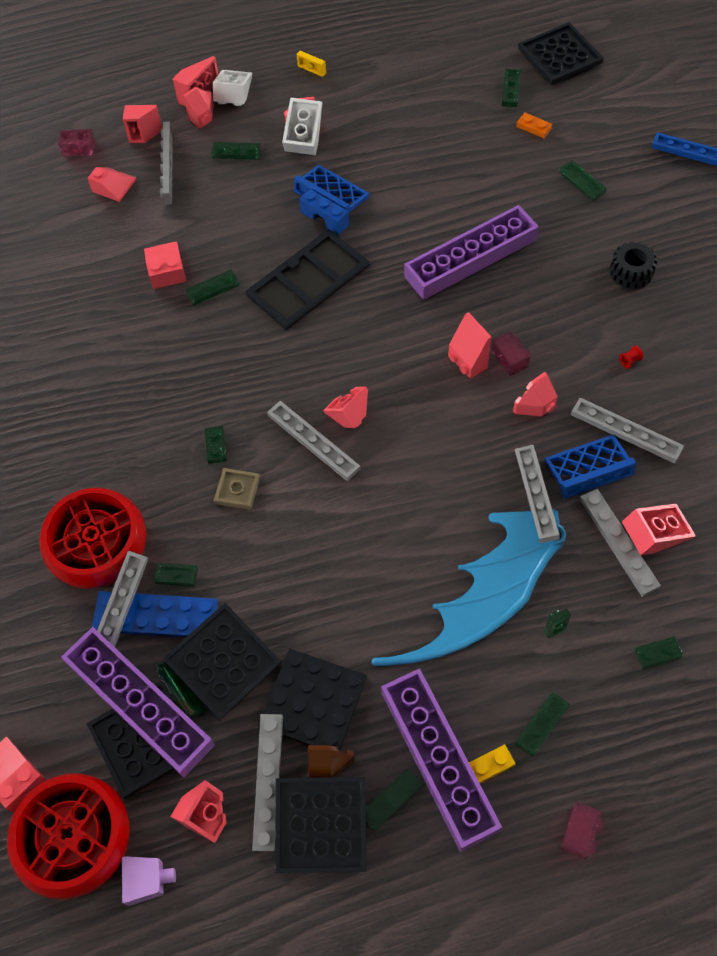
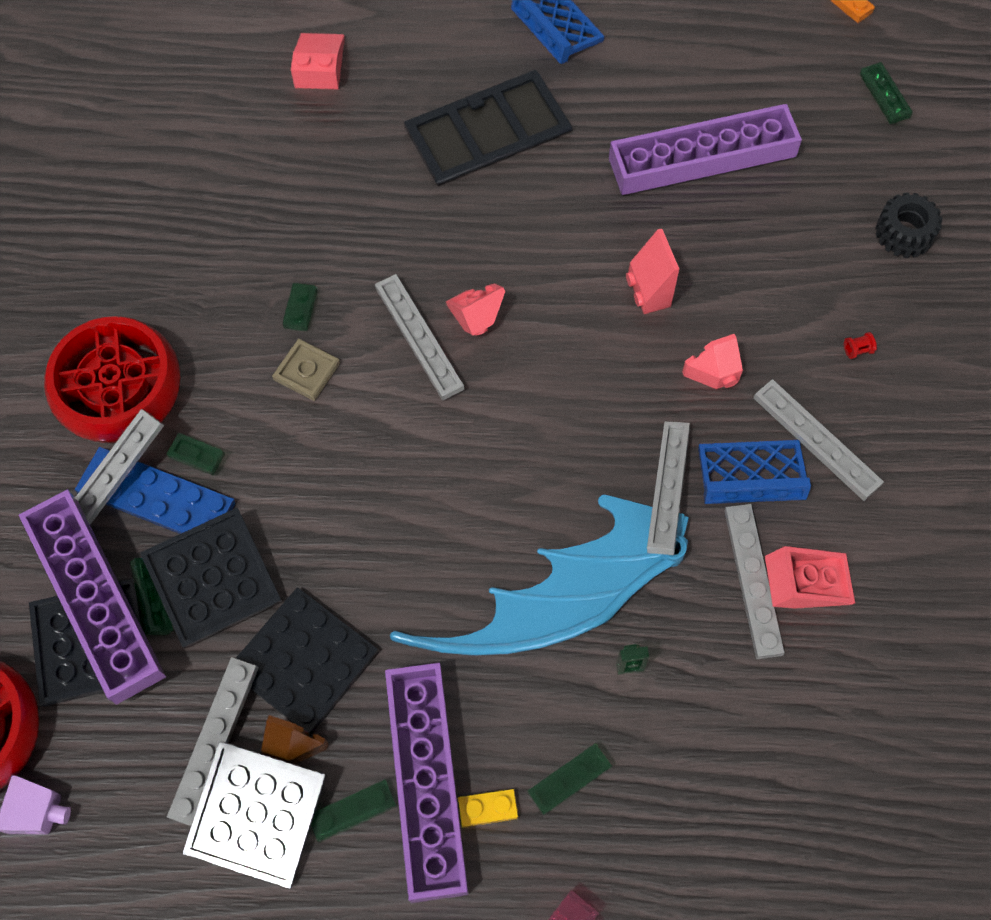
camera: 15 degrees right, 5 degrees up
(202, 811) = (124, 751): coral slope -> none
(212, 287) = (366, 105): clear green plate -> none
(335, 216) = (529, 33): blue arch -> none
(510, 353) = (706, 295): clear pink brick -> none
(658, 652) = (750, 736): clear green plate -> none

